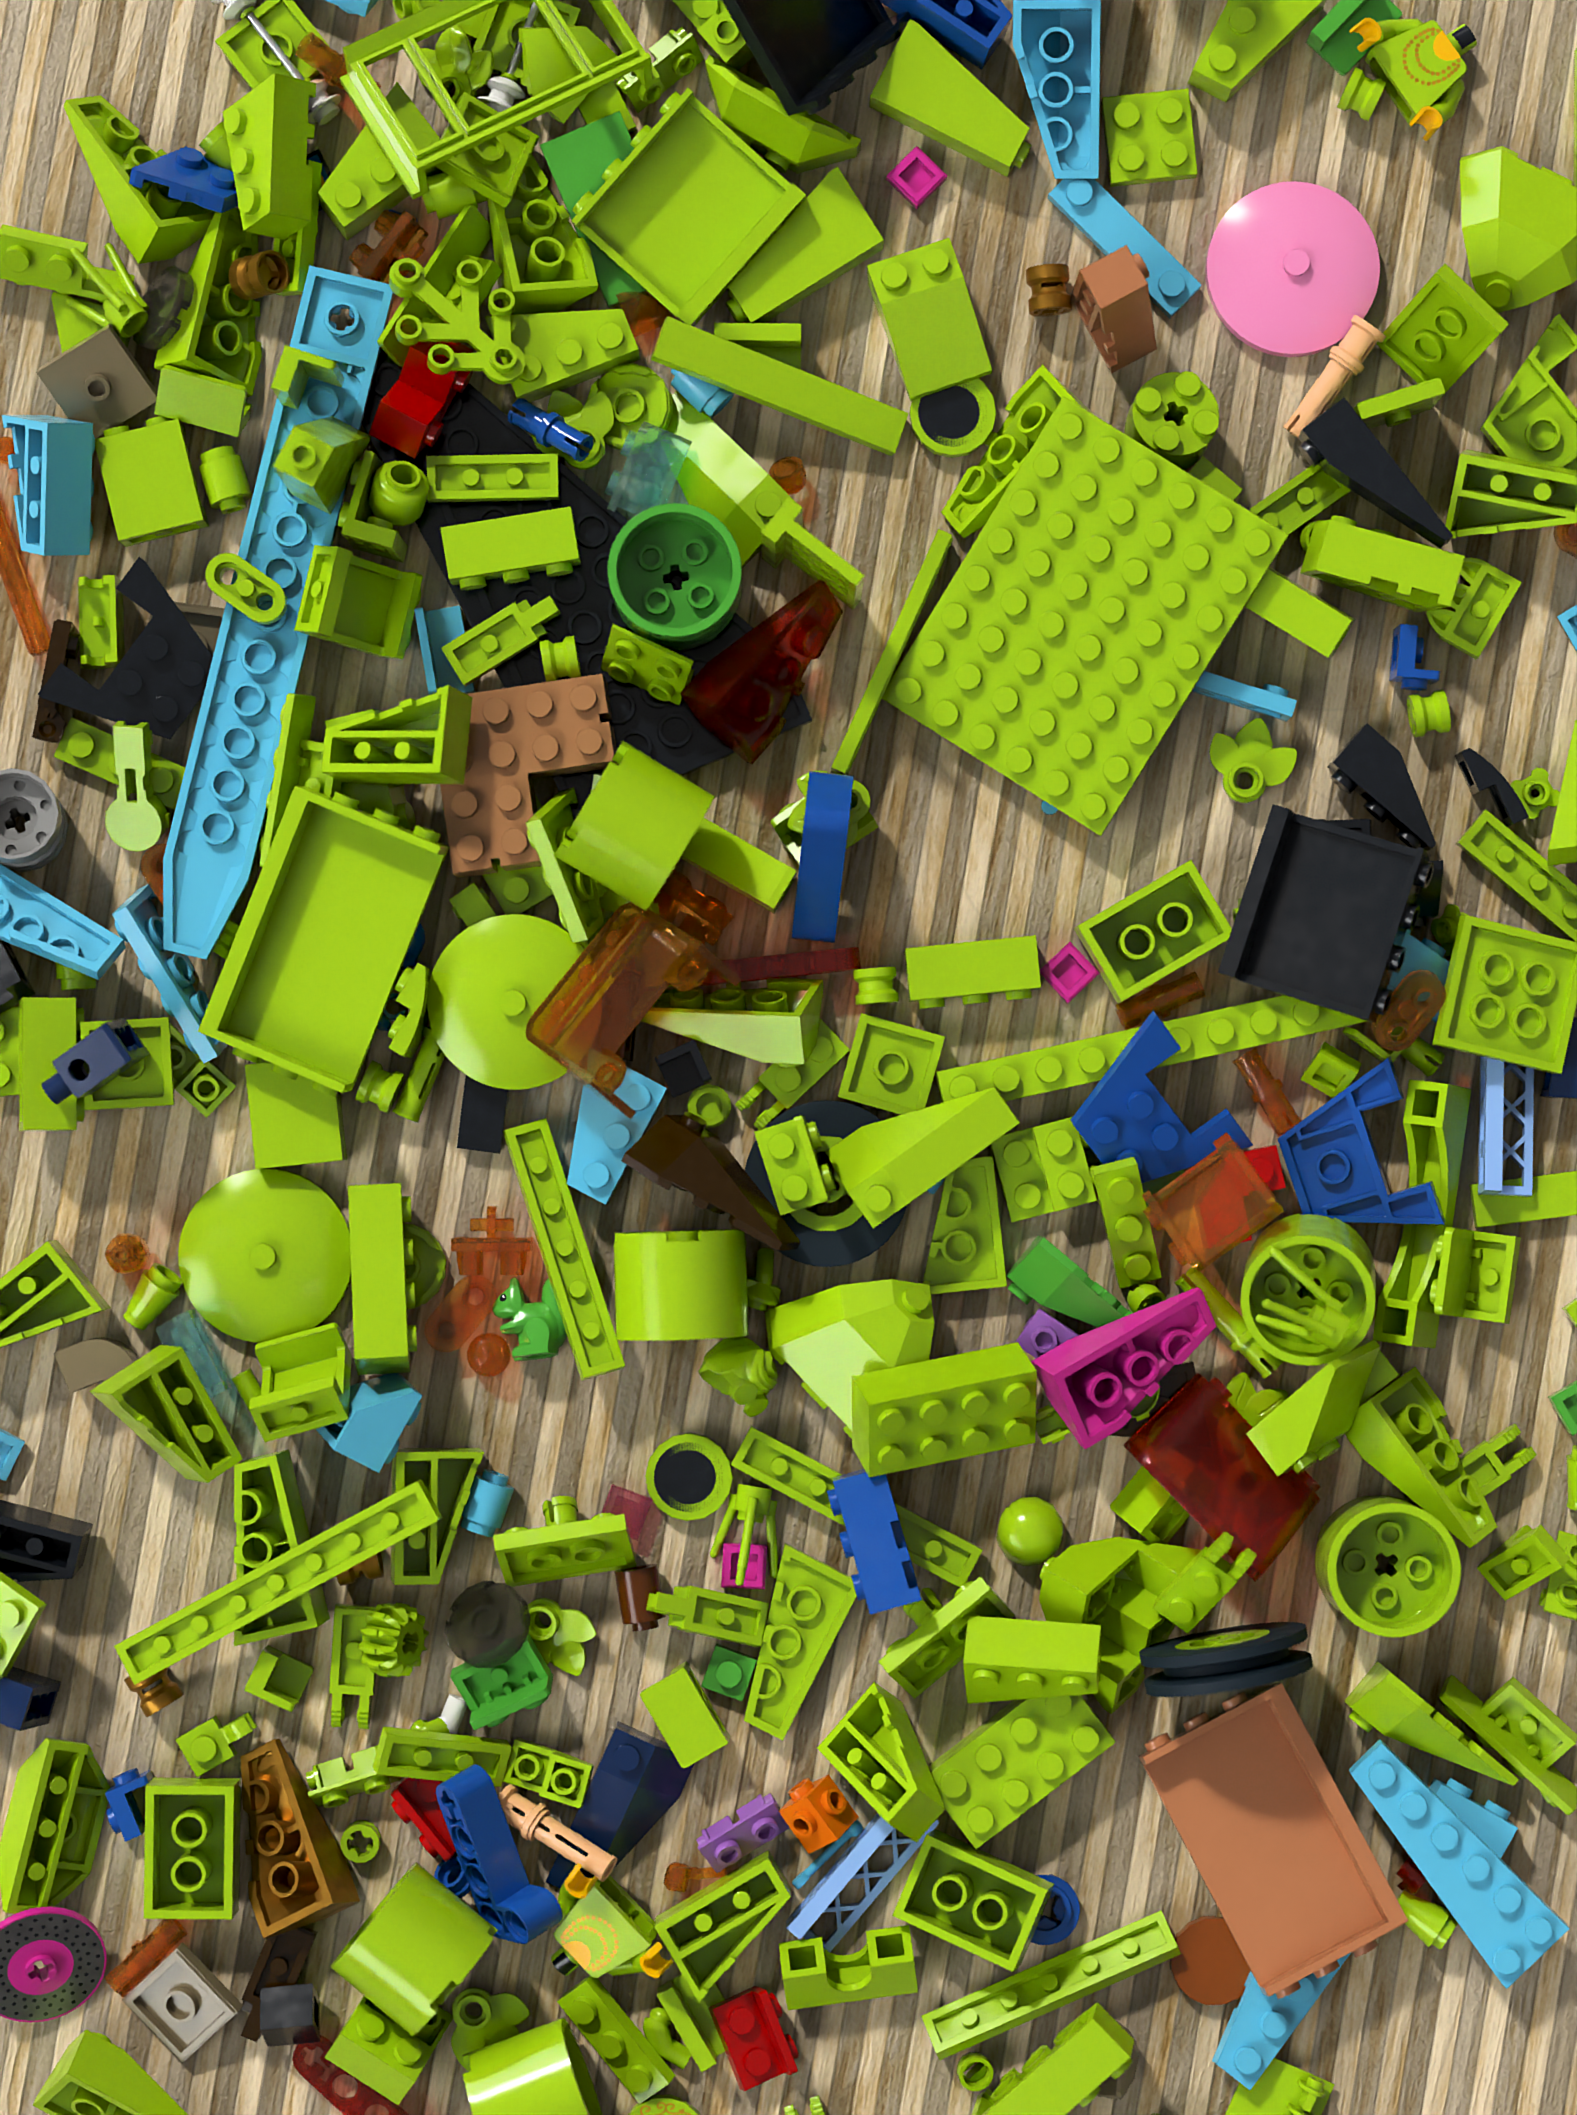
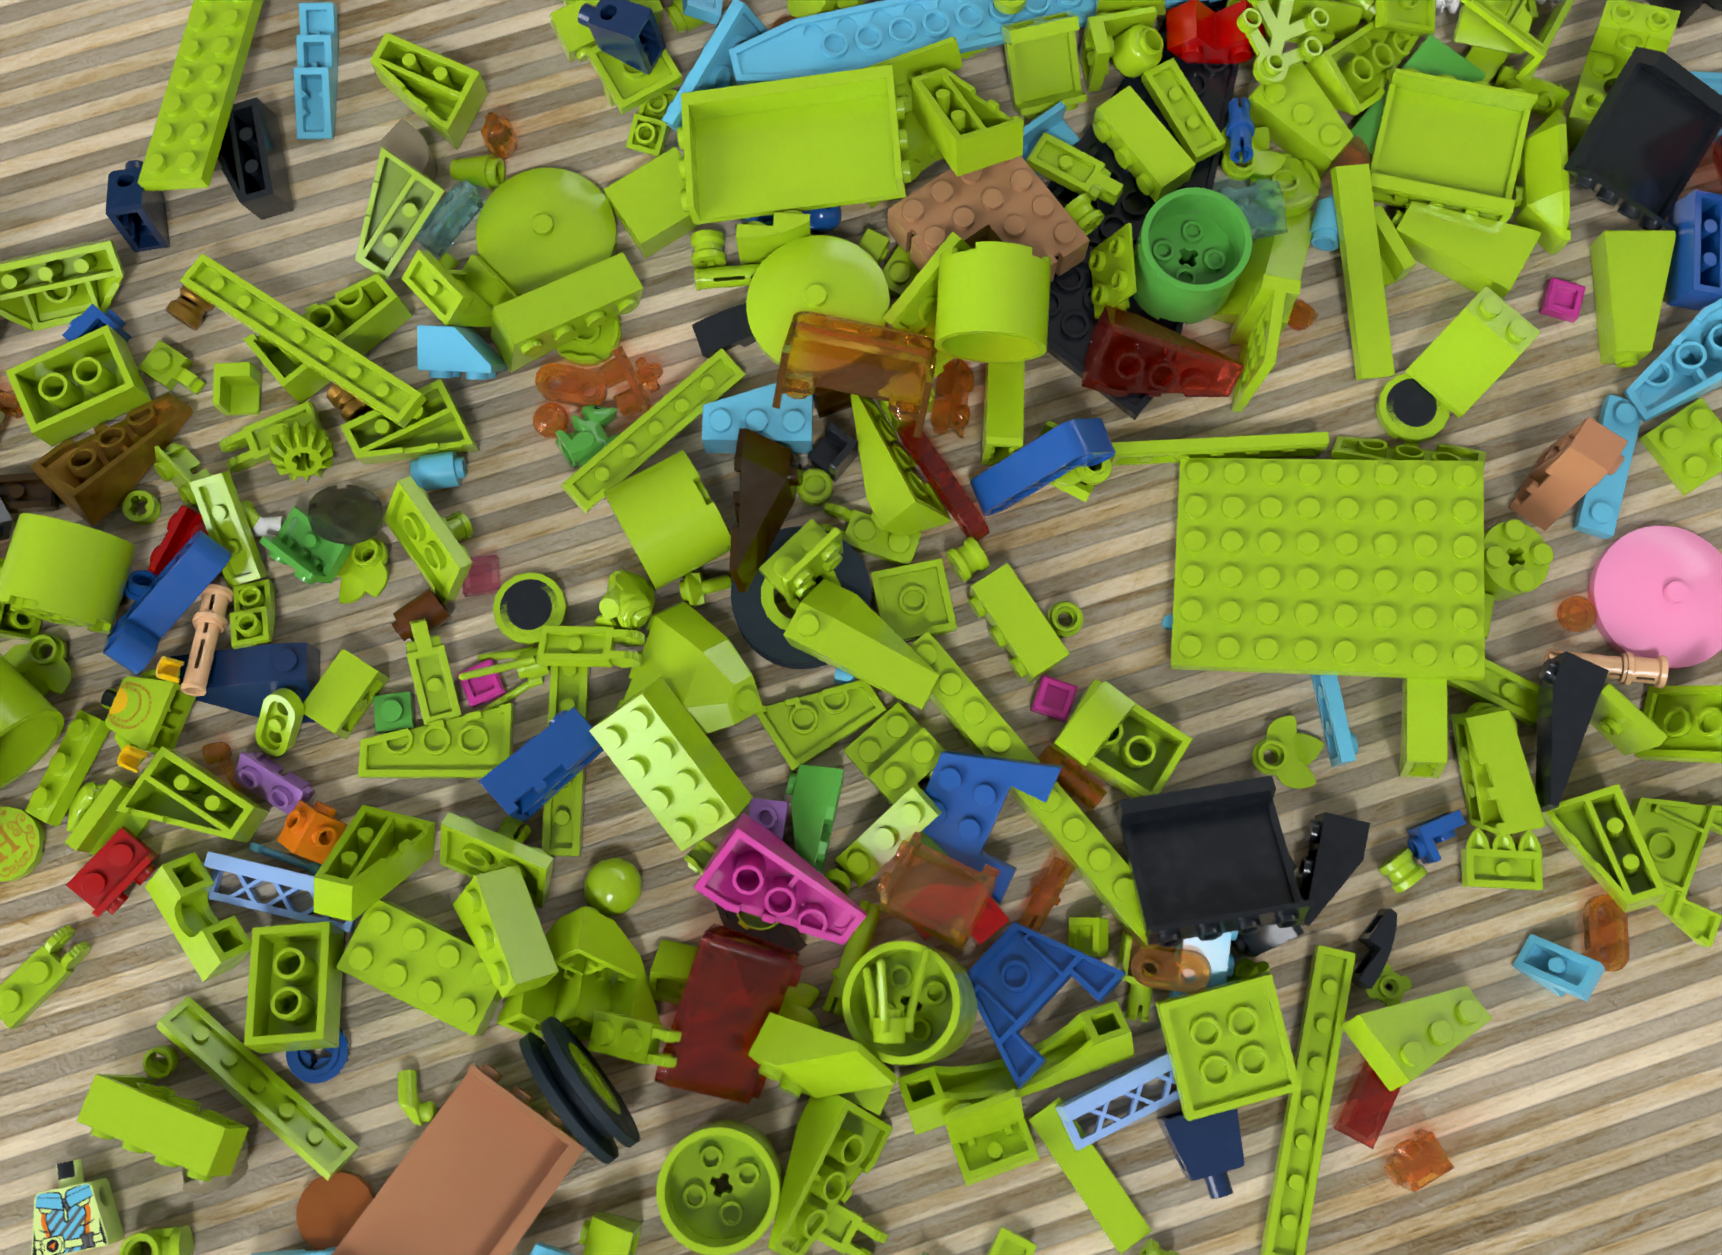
camera: 65 degrees right, 10 degrees down
(684, 1795) = (279, 722): none -> lime plate
(770, 1437) = (588, 646): none -> lime hinge
(1001, 906) = (1067, 608): none -> lime plate
(1048, 289) = (1546, 425): pearl gold wheel -> none
(1127, 953) = (1095, 723): none -> lime slope
(1142, 1838) = (409, 1100): none -> lime arm
(1262, 373) = (1576, 614): none -> clear orange plate

